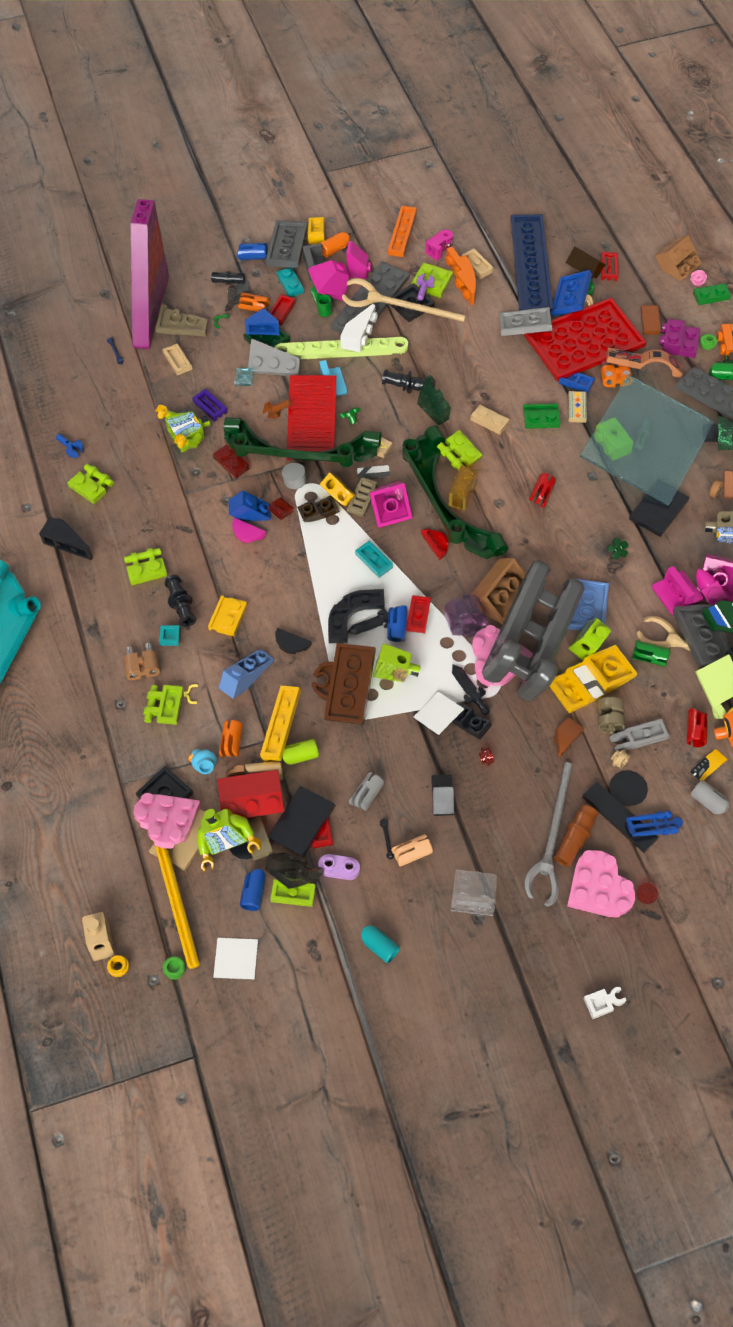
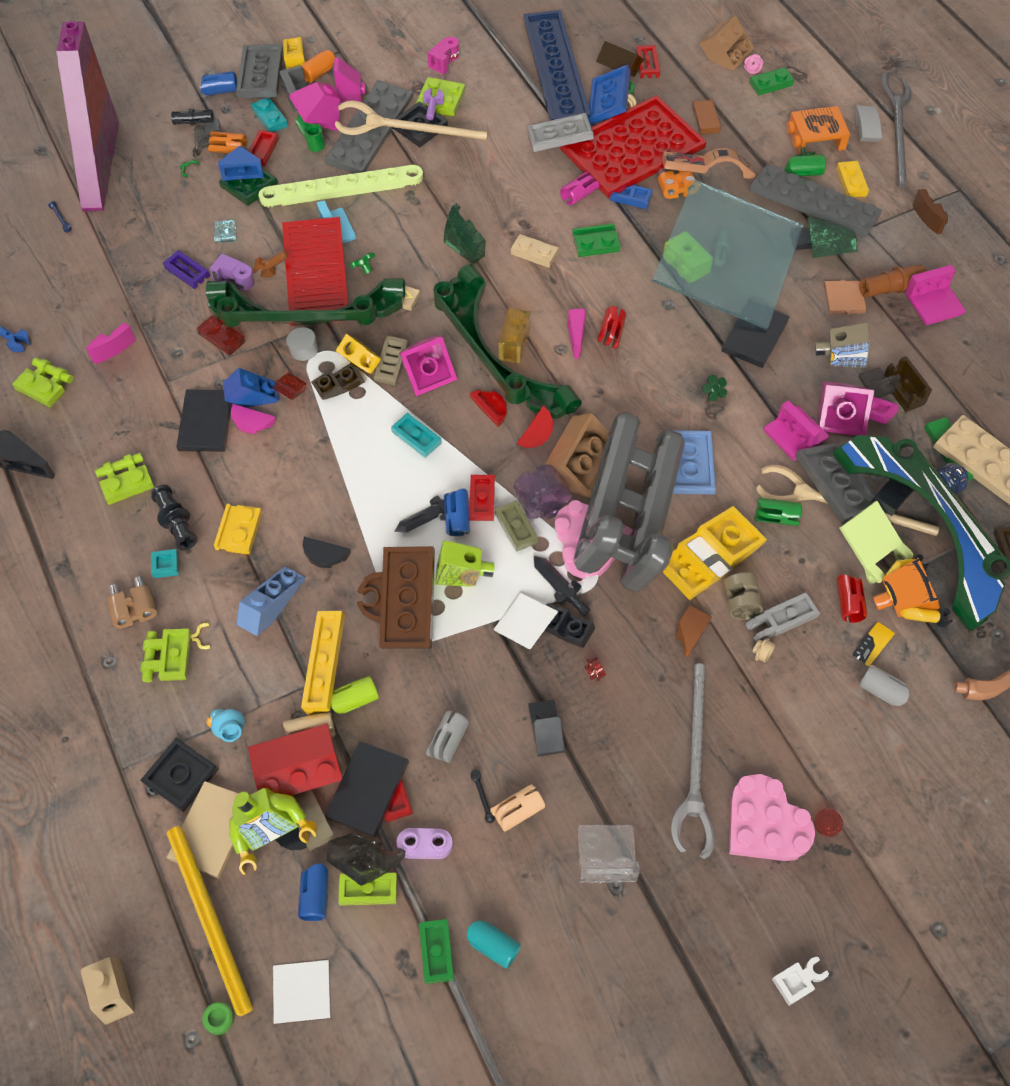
camera: 10 degrees left, 0 degrees up
(118, 959) = (132, 1023): yellow plate -> none
(141, 461) = (106, 347): none -> dark pink slope
(166, 818) = (185, 810): bright pink plate -> none
(177, 359) = (139, 219): tan tile -> none
(178, 323) = (137, 176): dark tan wing -> none
(184, 427) = (155, 299): torso -> none
(211, 528) = (204, 421): none -> black tile
(231, 738) = (260, 689): orange arm -> none
(238, 770) = (275, 731): medium nougat tile -> none
(247, 411) = (233, 271): none -> medium lavender leg
(272, 361) = (257, 208): light grey wing -> none
(337, 944) = (436, 951): none -> green plate
(348, 606) = (393, 497): black plate -> none
(356, 331) = (358, 160): white slope -> none
(373, 472) = (401, 328): sticker -> none
(402, 231) = (397, 44): orange plate -> none
(405, 381) = (423, 215): black piece -> none
(442, 639) = (516, 526): none -> olive plate
(462, 448) = (505, 286): lime plate -> none
(464, 274) = (479, 85): orange slope -> none
(470, 566) = (538, 430): none -> red tile
(480, 265) = (492, 72): tan plate -> none
(513, 487) = (576, 326): none -> dark pink slope
(534, 371) = (579, 188): none -> dark pink arm
(576, 835) = (726, 758): dark orange piece -> none
(577, 407) = (637, 225): tan tile -> none
(592, 635) = (703, 496): lime torso -> none
(616, 814) = (777, 726): black tile -> none
(628, 788) = (779, 686): black sticker -> none
(665, 830) = (847, 724): blue piece -> none
(679, 338) = (743, 134): magenta plate -> none
(708, 341) = (778, 135): bright green plate -> none
(709, 587) = (835, 422): dark pink plate -> none
(716, 489) = (819, 303): medium nougat tile -> none

